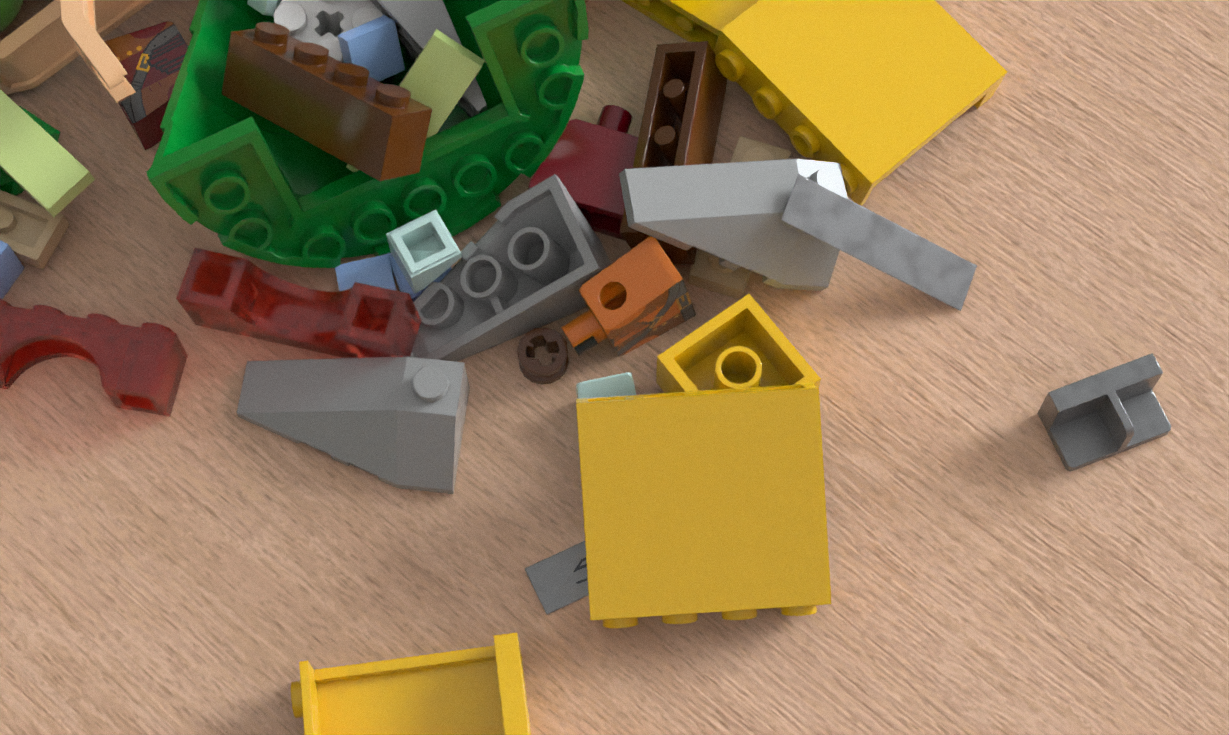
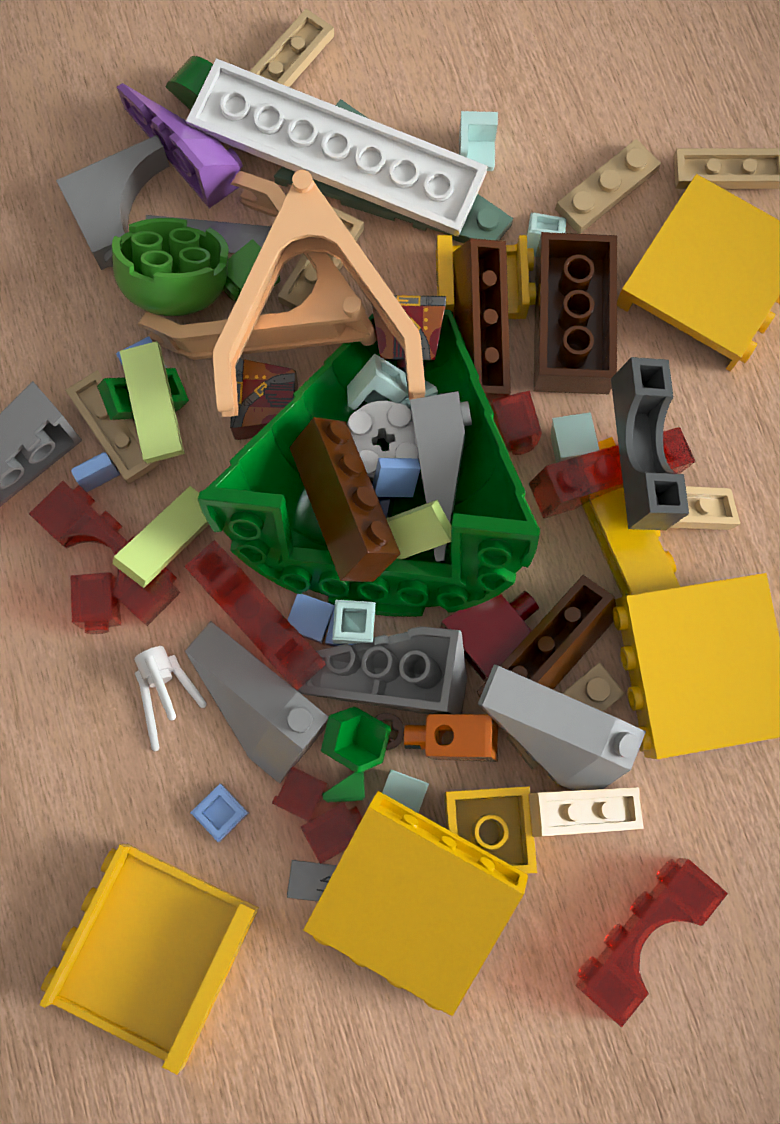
camera: 30 degrees right, 10 degrees up
(87, 417) = (93, 602): none -> clear red brick
(130, 288) = (162, 539): none -> yellowish green tile
(218, 450) = (156, 669): none -> white plant
(400, 567) = (219, 813): none -> light blue tile
(488, 483) = (301, 794): none -> clear red panel
(512, 373) = (355, 739): none -> green panel
(541, 441) = (347, 790): none -> green slope
(551, 498) = (332, 831): none -> clear red brick
(823, 294) = (585, 811): none -> plate
(878, 242) = (636, 799): flat silver sticker -> none
(991, 453) = (615, 976): none -> clear red arch
(1105, 413) = (708, 1000): flat silver panel -> none

